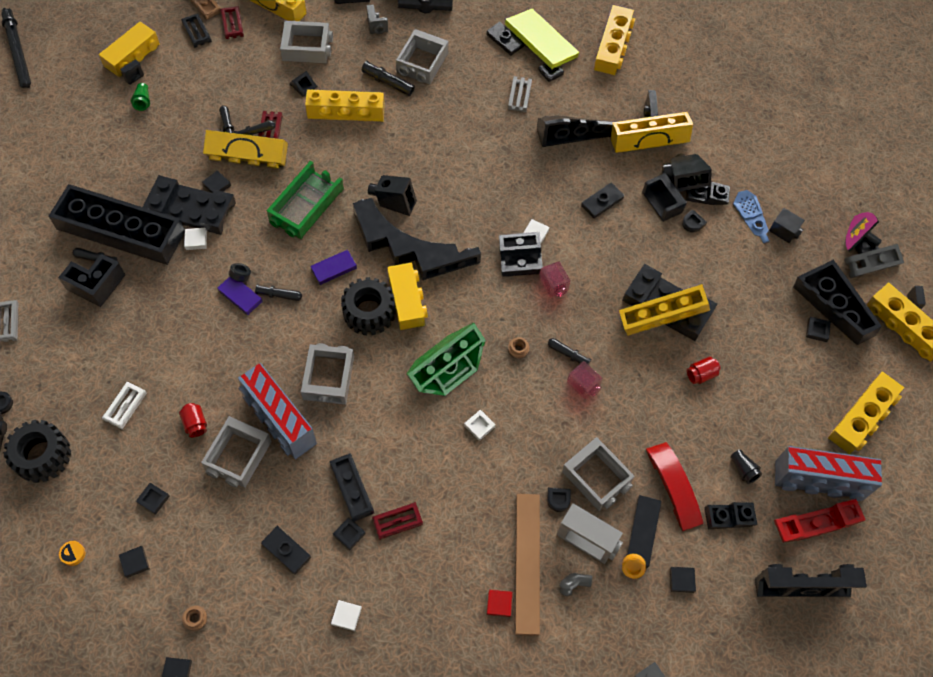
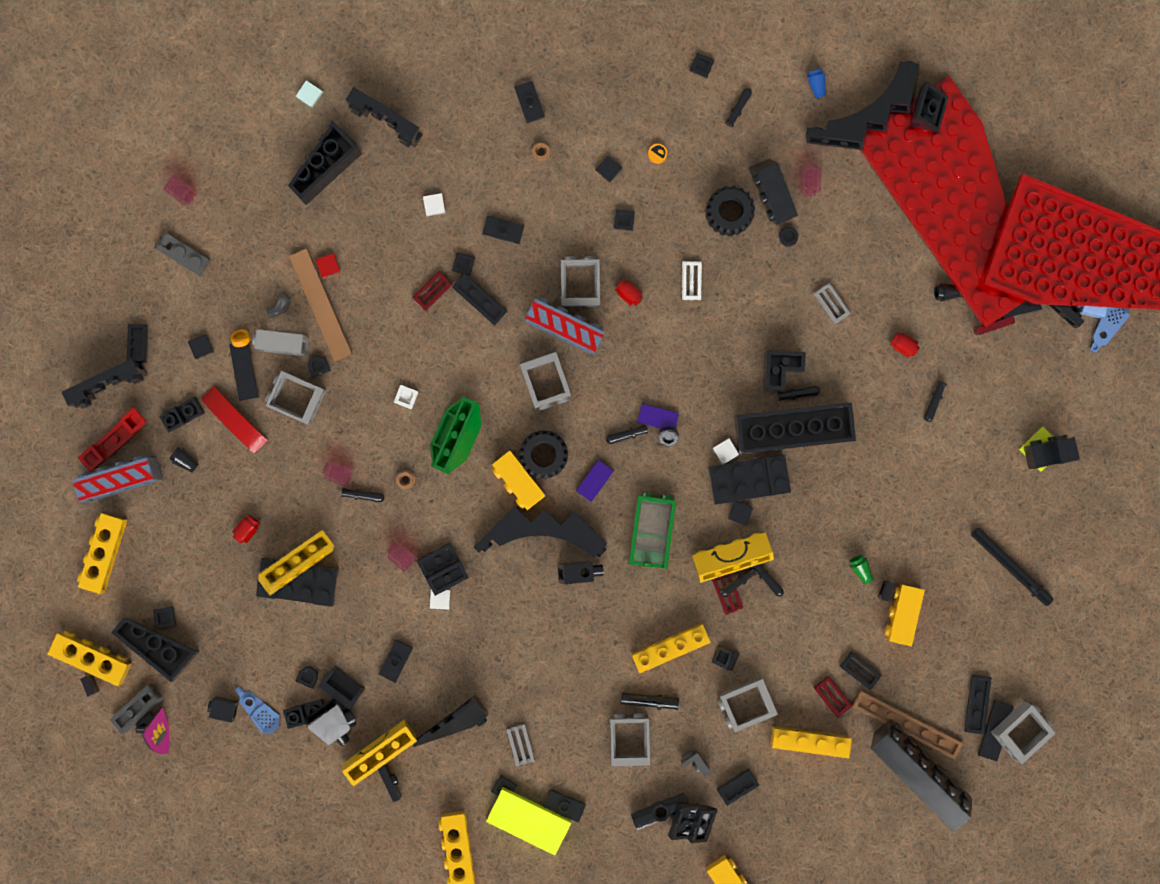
camera: 155 degrees right, 25 degrees up
(755, 615) = (137, 343): none -> black plate

